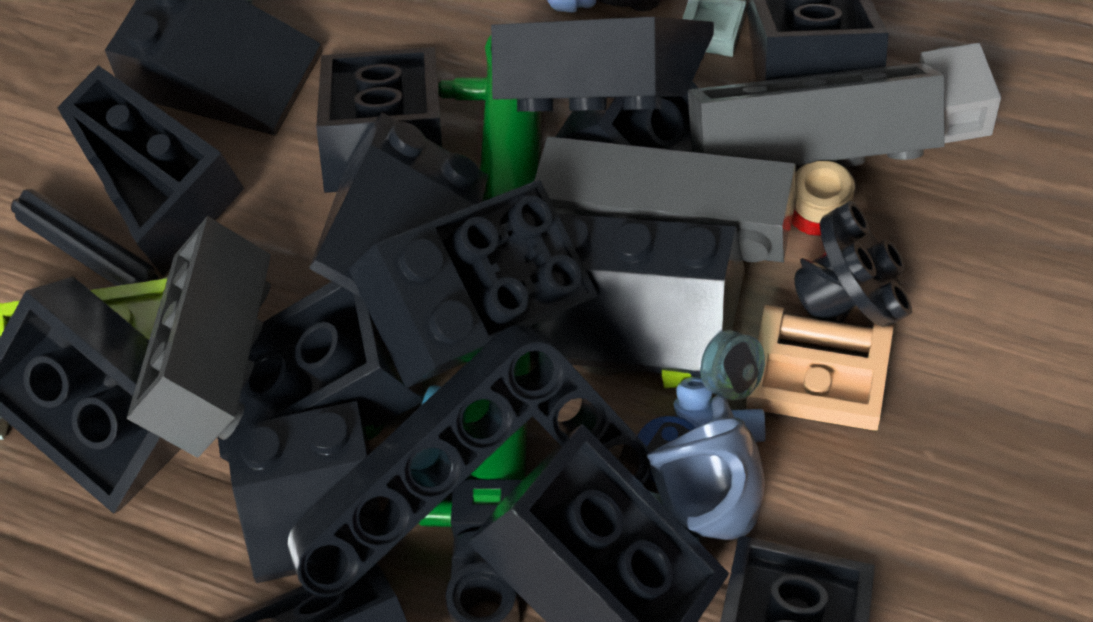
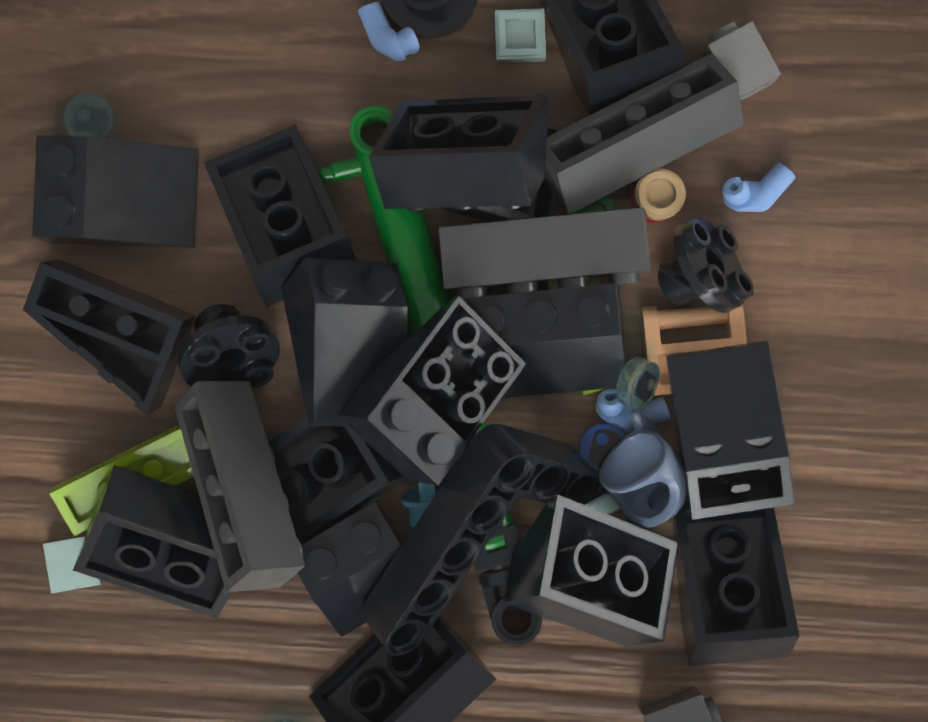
camera: 25 degrees left, 30 degrees up
(80, 240) = (85, 401): black axle -> none
(267, 207) = (229, 348): none -> black plate
(834, 447) = (730, 430): none -> black slope
(943, 231) = (757, 195): none -> light blue arm

